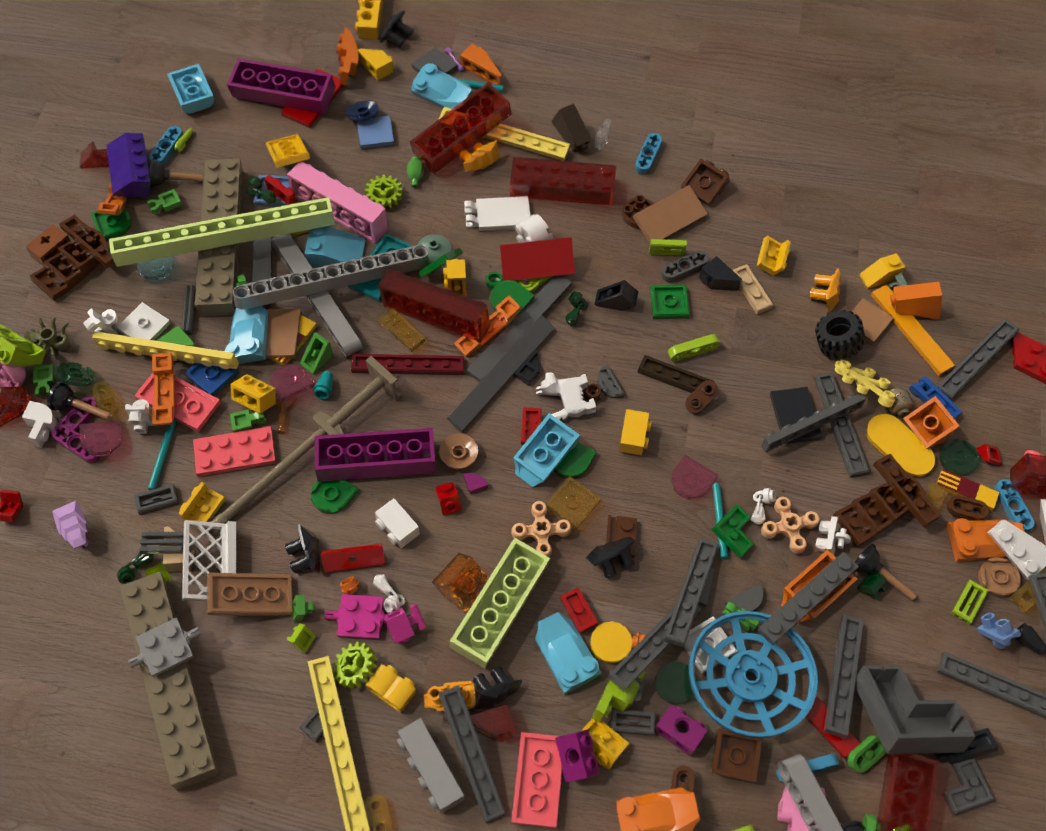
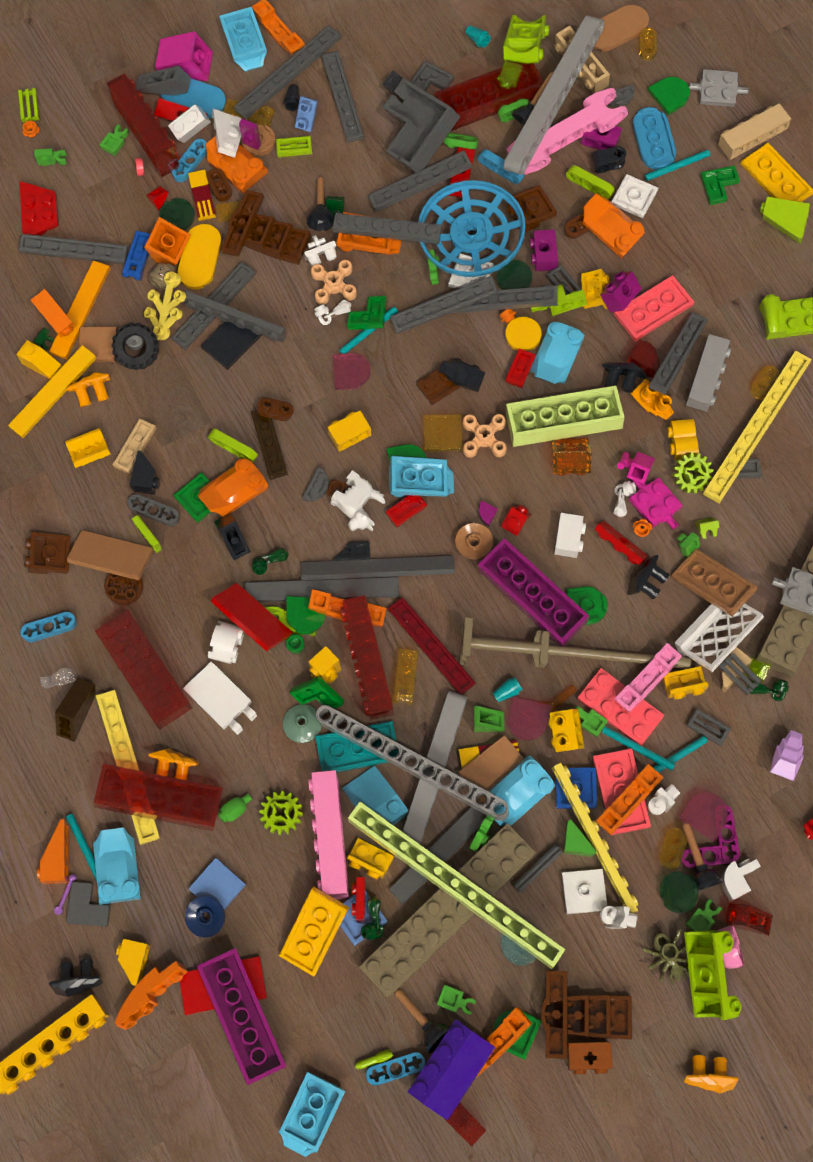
camera: 125 degrees left, 10 degrees up
(192, 435) = (638, 748): none -> teal bar
(230, 476) = (648, 678): none -> bright pink slope
(655, 320) = (233, 488): none -> orange slope
(748, 600) = (415, 273): dark grey tile -> none
(846, 264) = (52, 391): none -> yellow tile
(1003, 557) = (249, 134): none -> magenta plate

